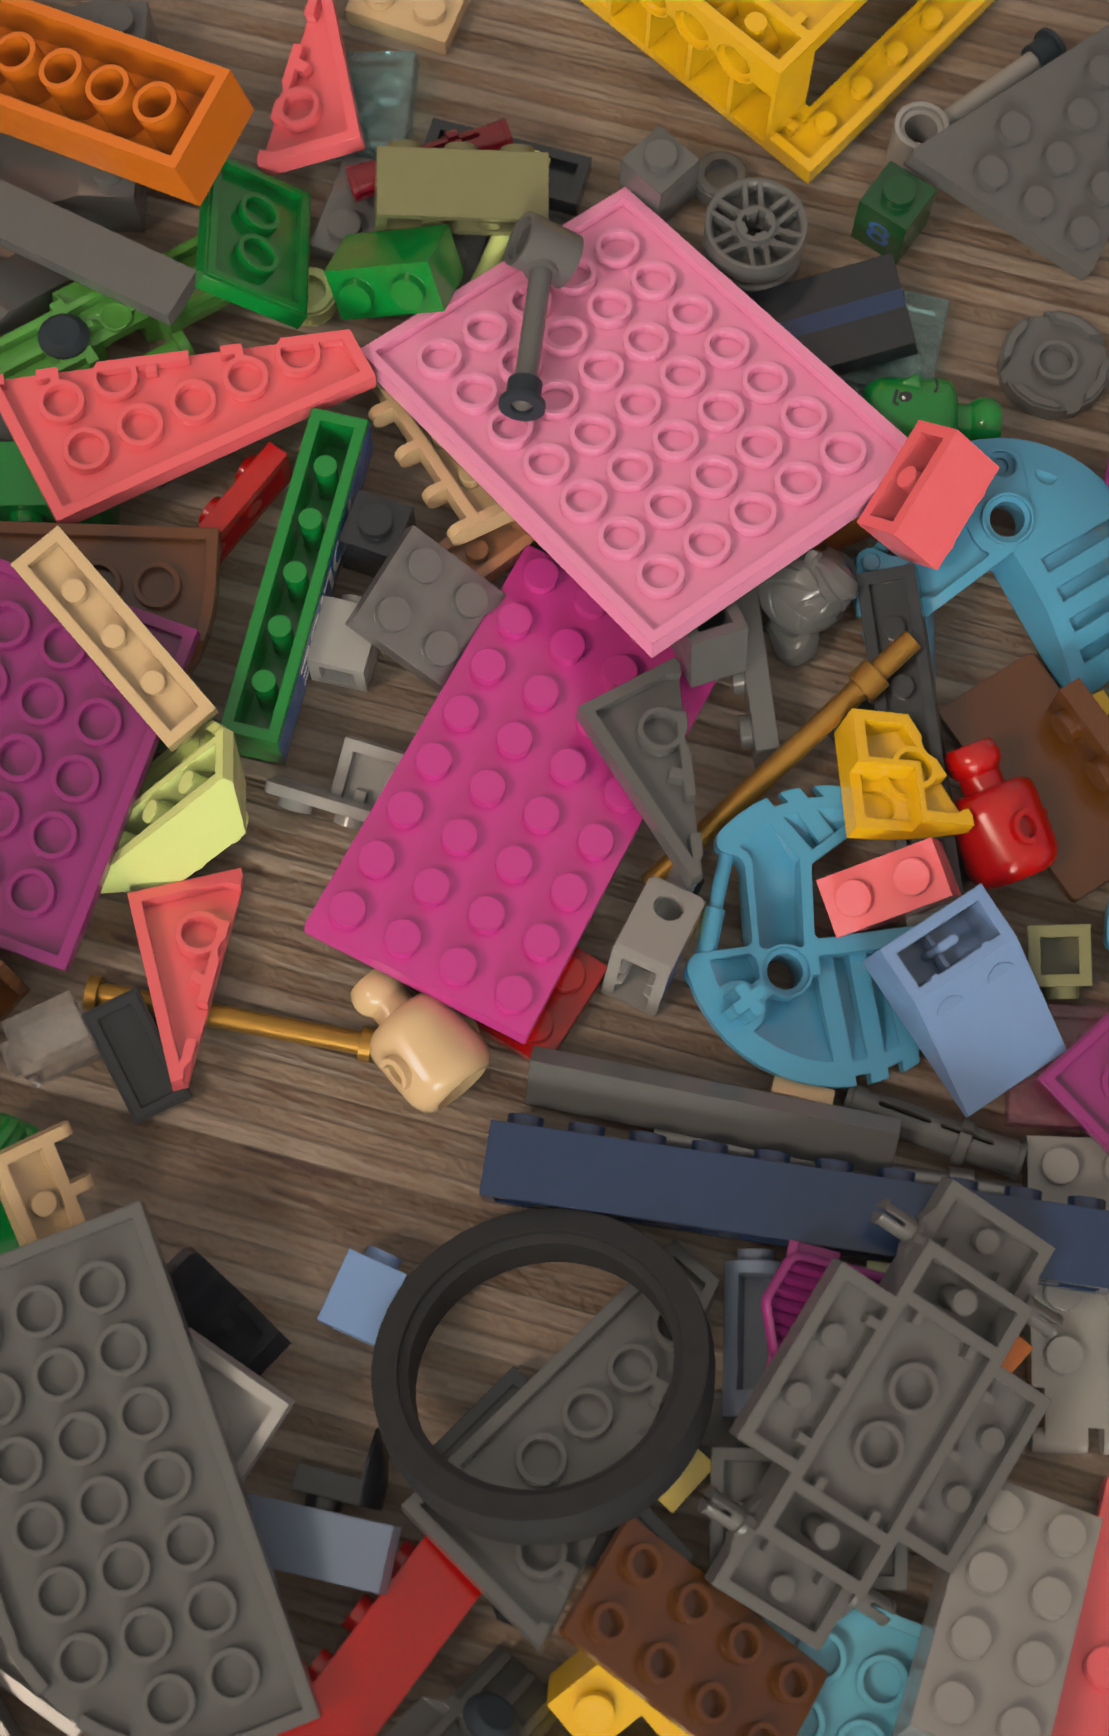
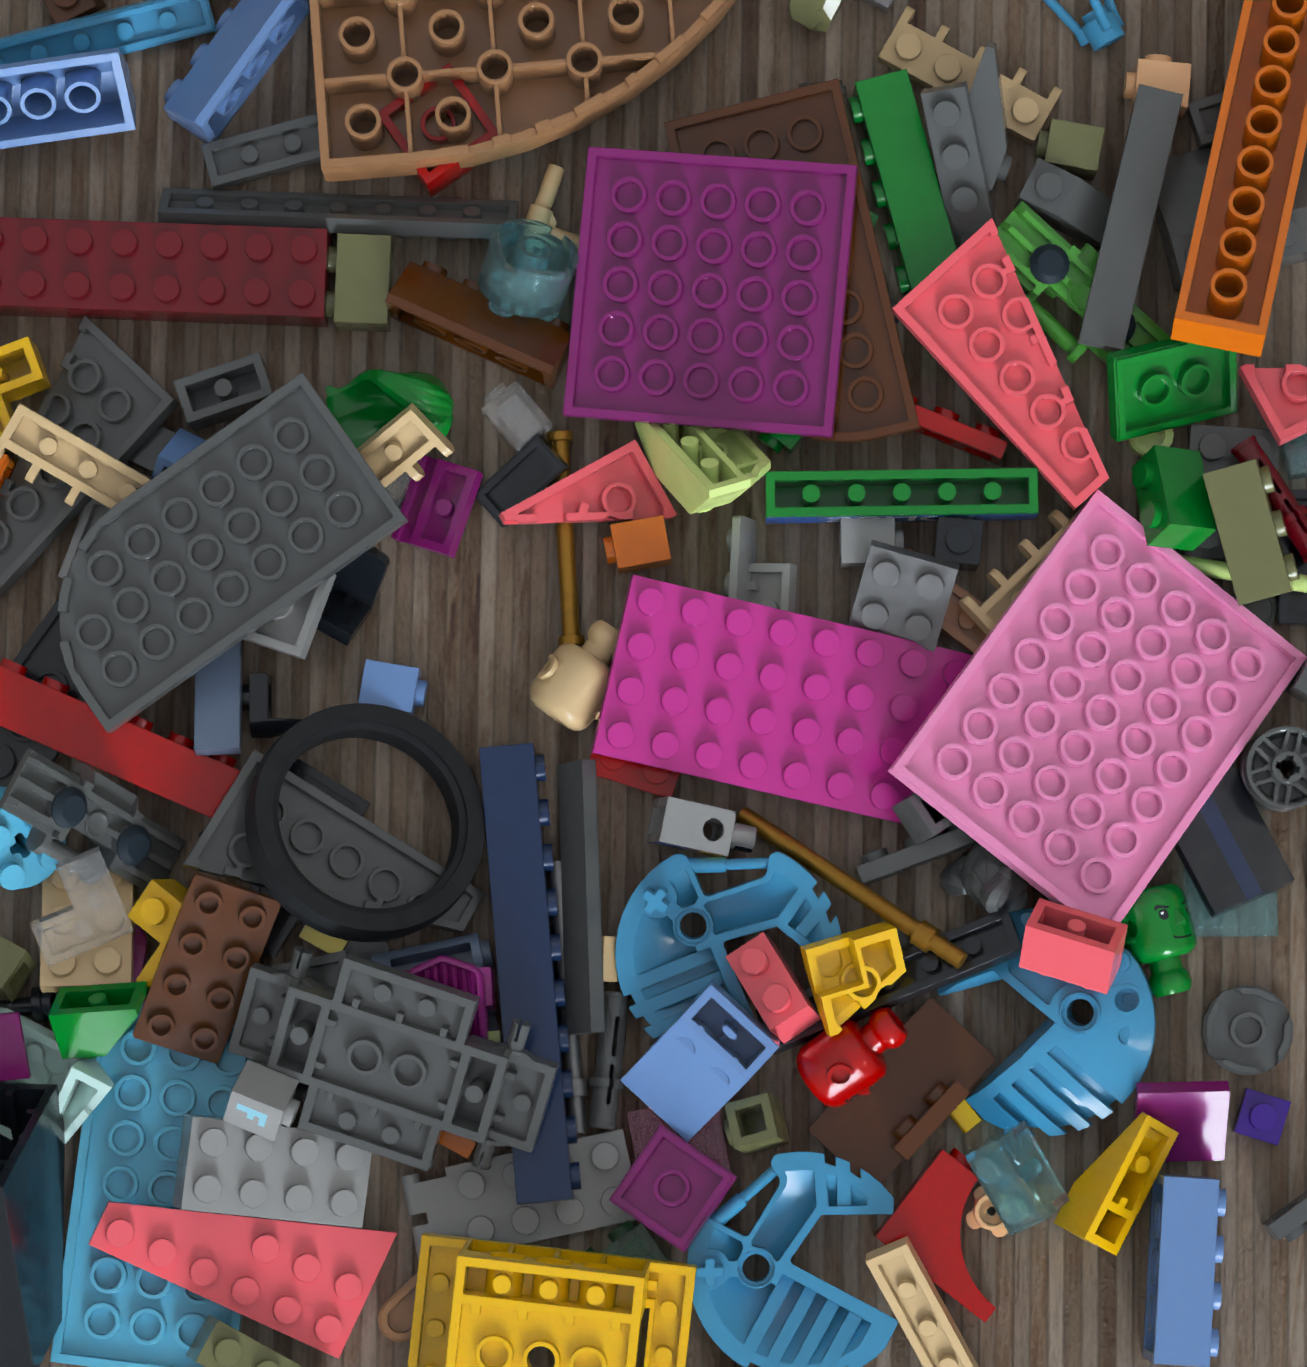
camera: 80 degrees right, 10 degrees up
(114, 638) = (804, 380): tan plate -> none
(139, 1164) = (438, 506): none -> magenta plate
(265, 923) = (638, 544): none -> orange brick
(547, 258) = (1208, 610): dark grey piece -> none
(644, 744) = (836, 782): dark grey wing -> none
(907, 1615) = (262, 1101): none -> light grey brick

